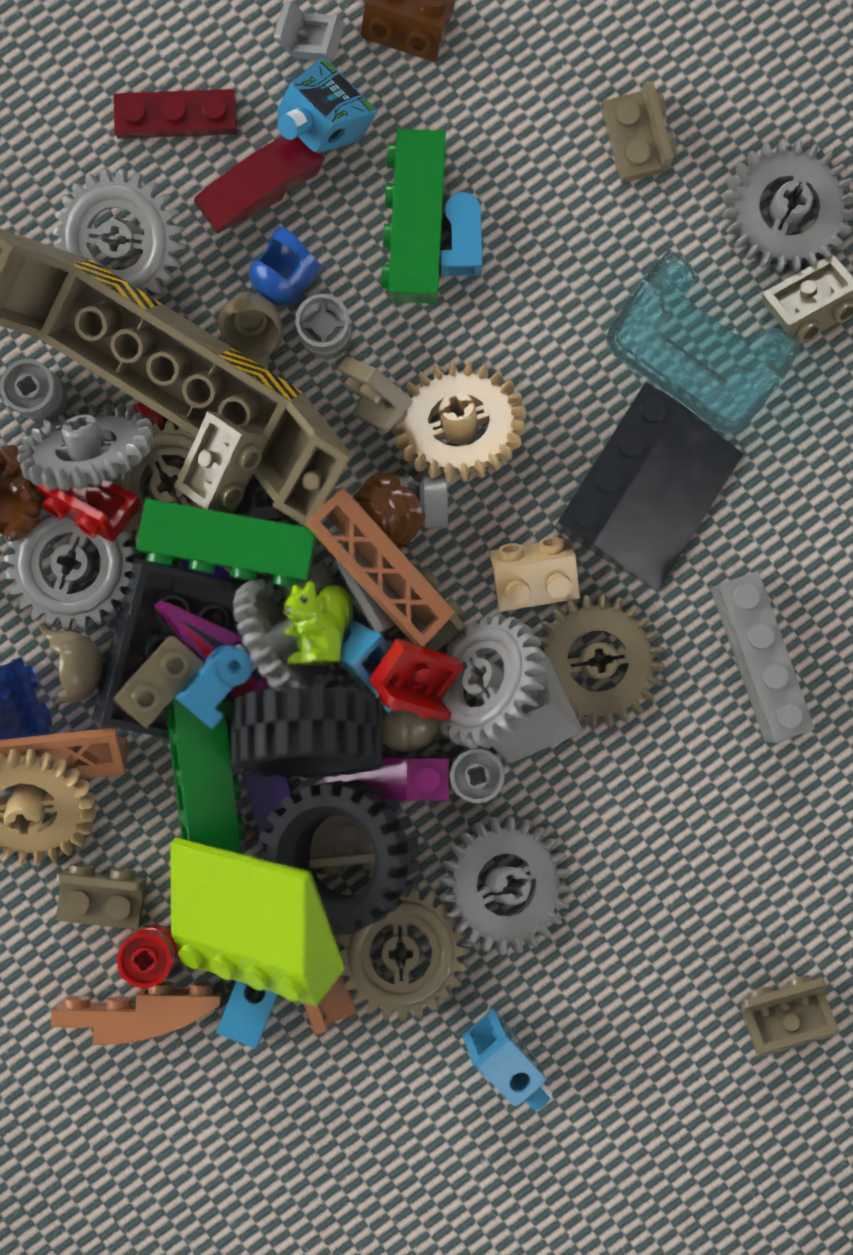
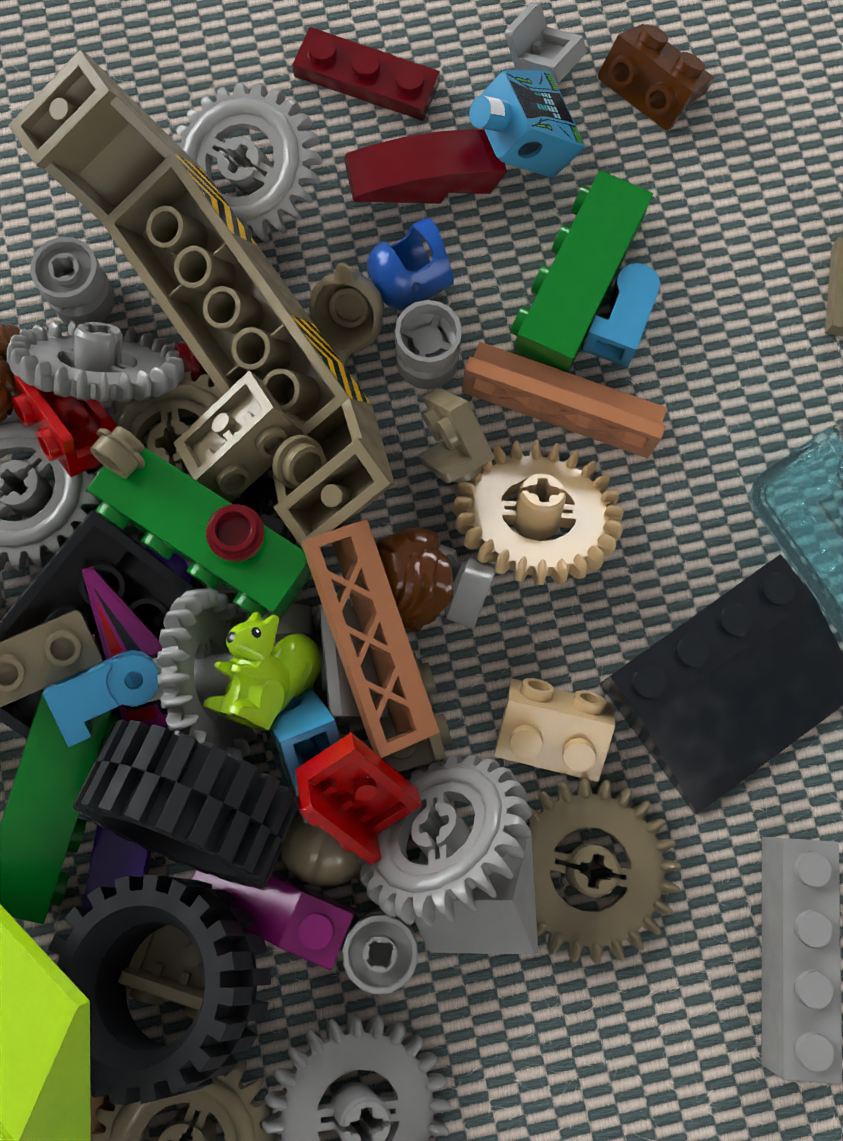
camera: 20 degrees right, 10 degrees down
(148, 513) = (118, 451): none -> dark tan plate
(256, 536) = (235, 533): none -> dark red plate
(275, 464) = (297, 460): none -> dark tan plate
(443, 323) = (564, 400): none -> nougat fence

